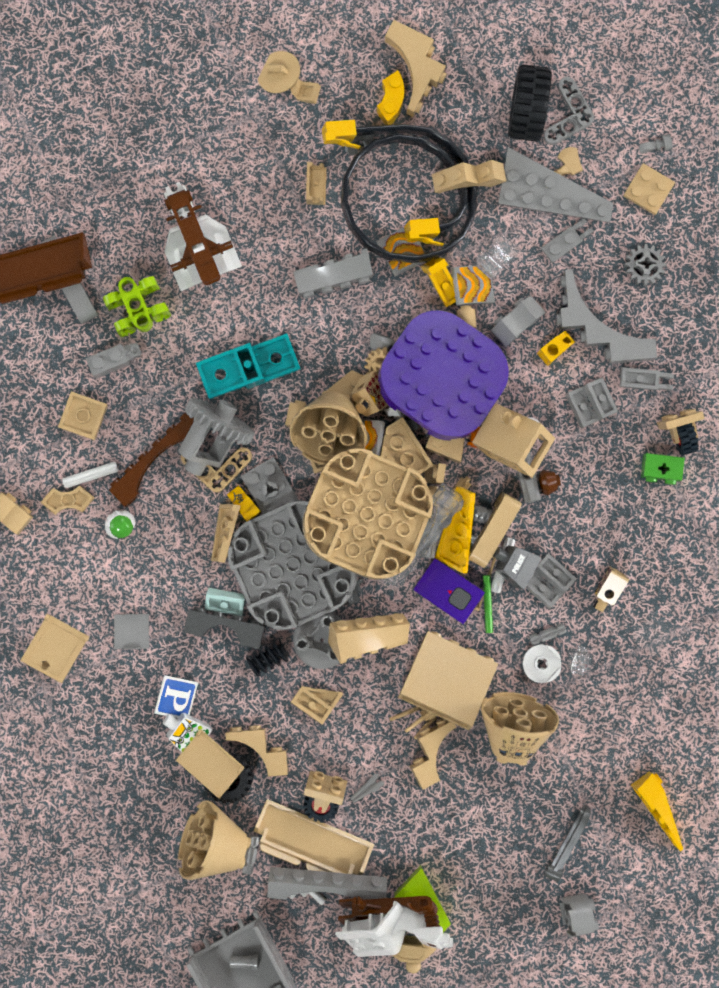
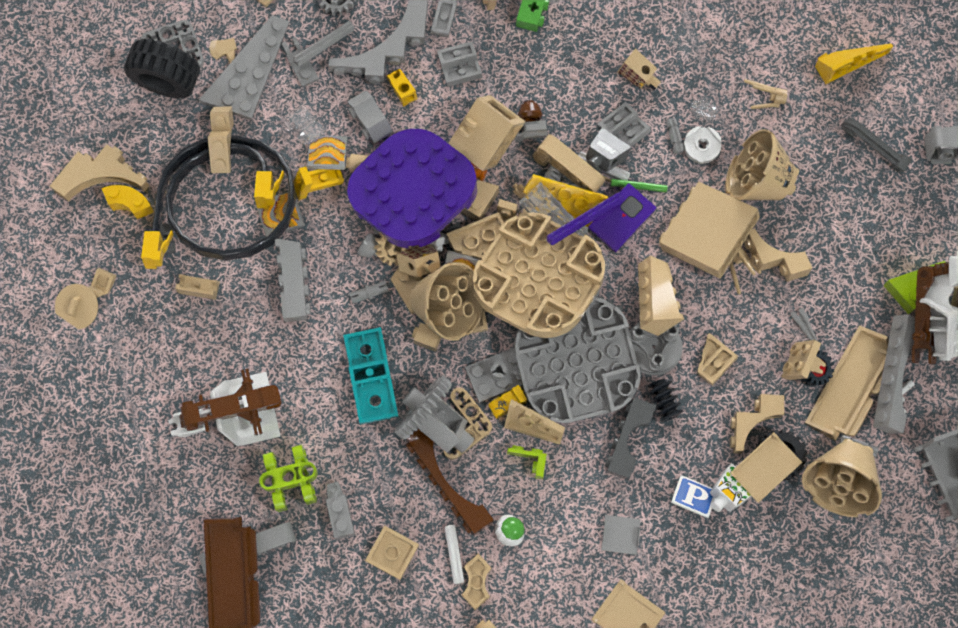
camera: 80 degrees left, 10 degrees down
(183, 542) = (538, 467): none -> lime bracket
(224, 601) = (603, 436): light aqua slope -> none
(335, 351) = (369, 292): none -> light grey pin
(426, 543) = (584, 219): none -> dark purple axle
(590, 261) = (323, 43): none -> light grey axle
(609, 734) = (777, 95): none -> tan plant

